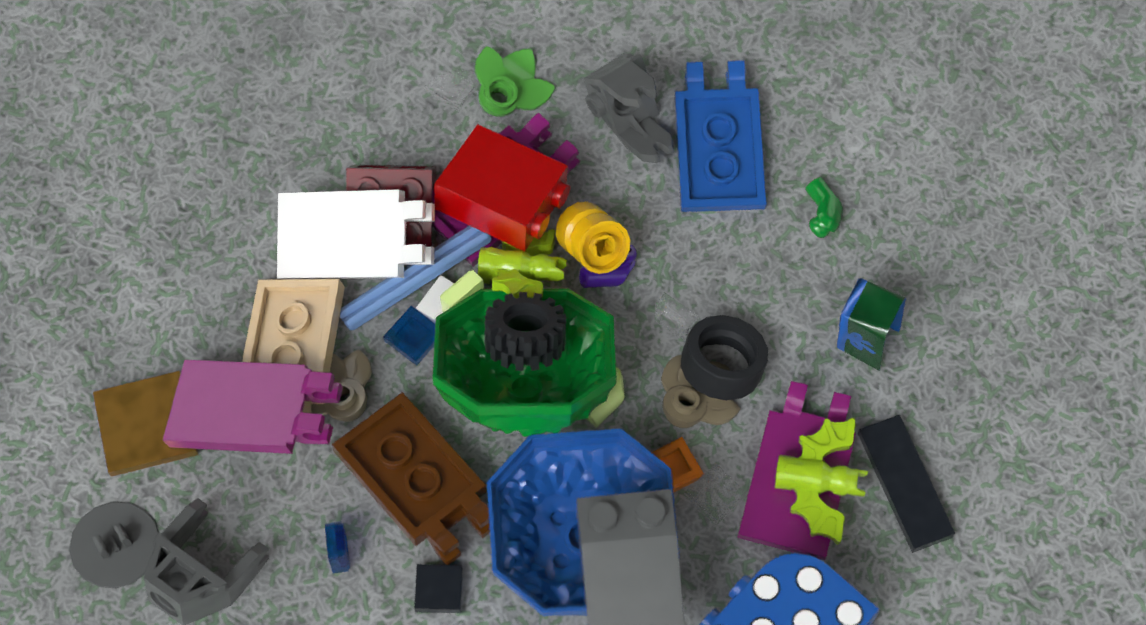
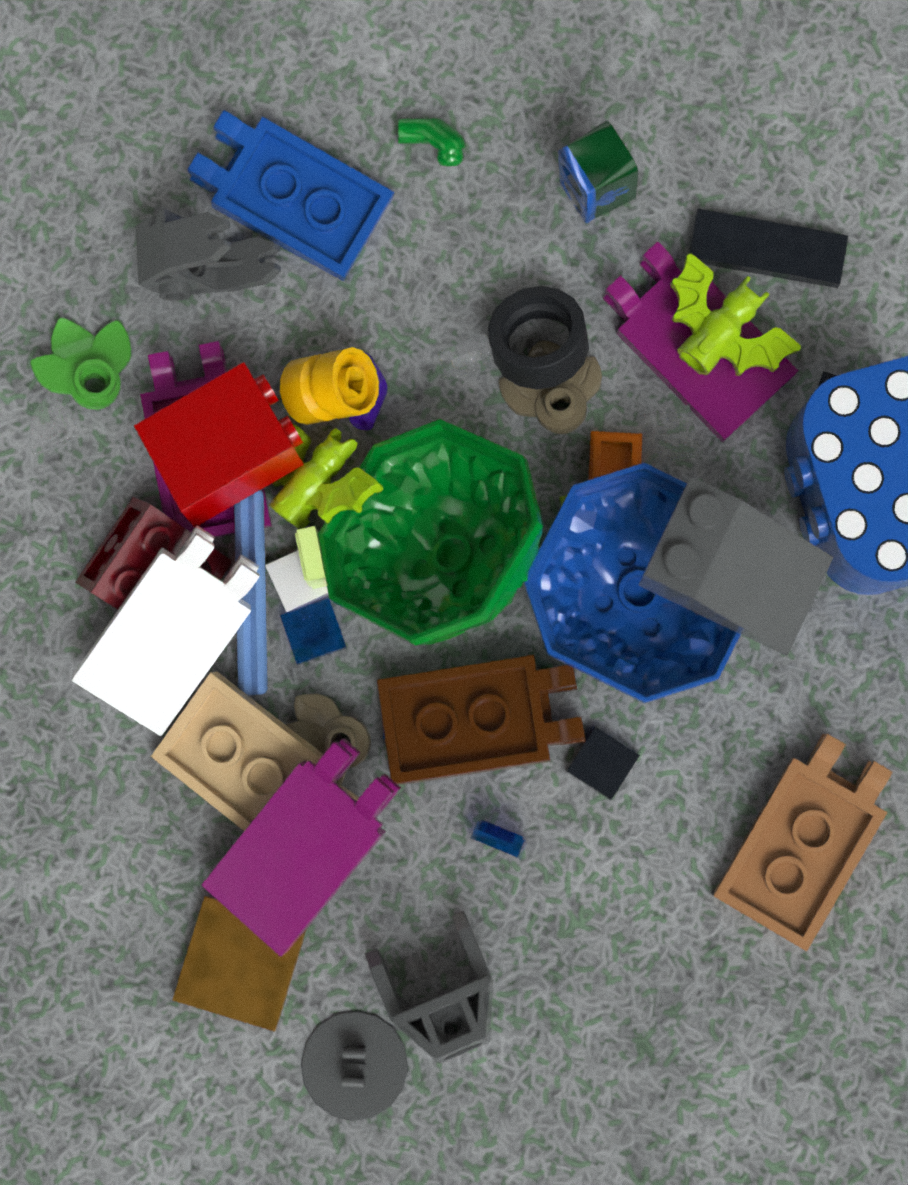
camera: 55 degrees left, 15 degrees up
(525, 331) = (426, 534): black tyre -> none

